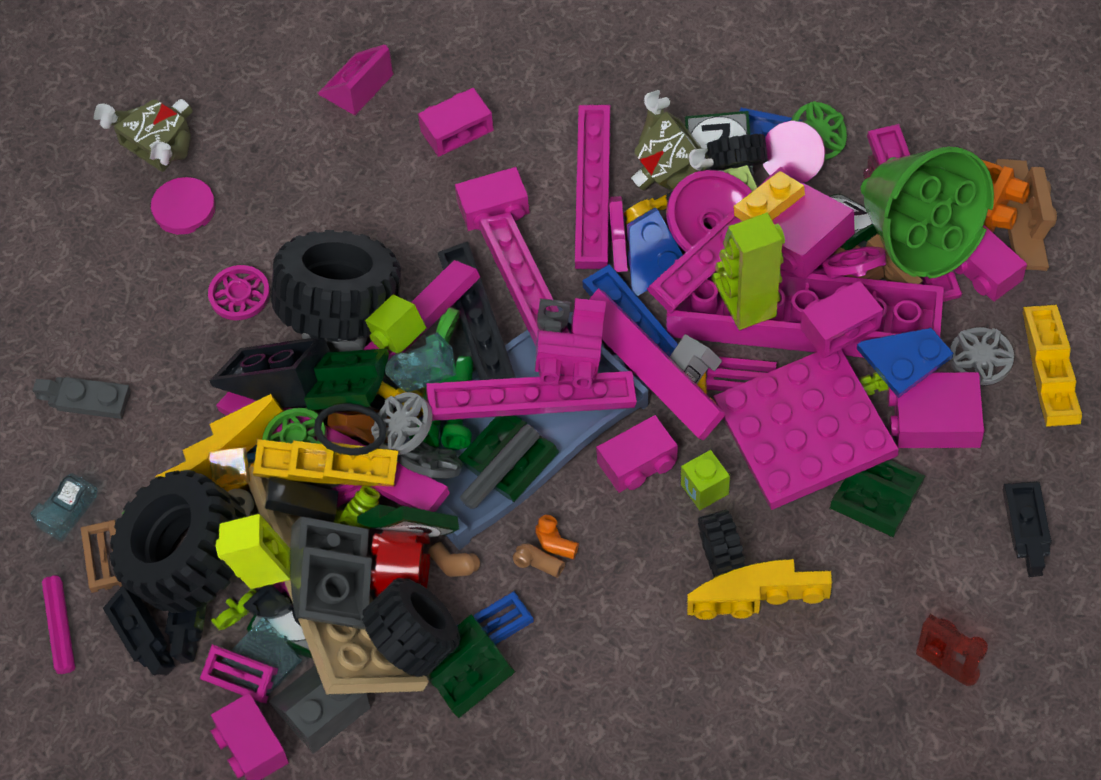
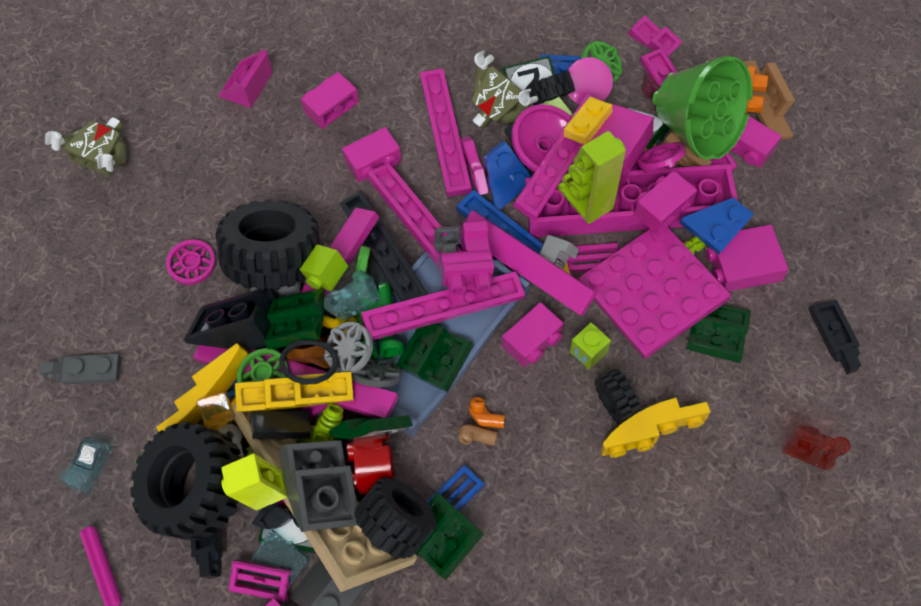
camera: 15 degrees left, 5 degrees up
(107, 581) = (118, 478): medium nougat tile -> none
(139, 632) = (170, 562): black hinge -> none
(183, 205) = (131, 200): dark pink tile -> none
(234, 613) = (244, 529): lime piece -> none
(454, 564) = (412, 451): medium nougat arm -> none
(499, 466) = (431, 367): dark grey axle -> none
(643, 207) = (487, 144): yellow plate -> none
(900, 109) = (652, 37): none -> dark pink slope
(983, 355) = (765, 210): light grey wheel -> none
(1052, 365) = (817, 209): yellow slope -> none

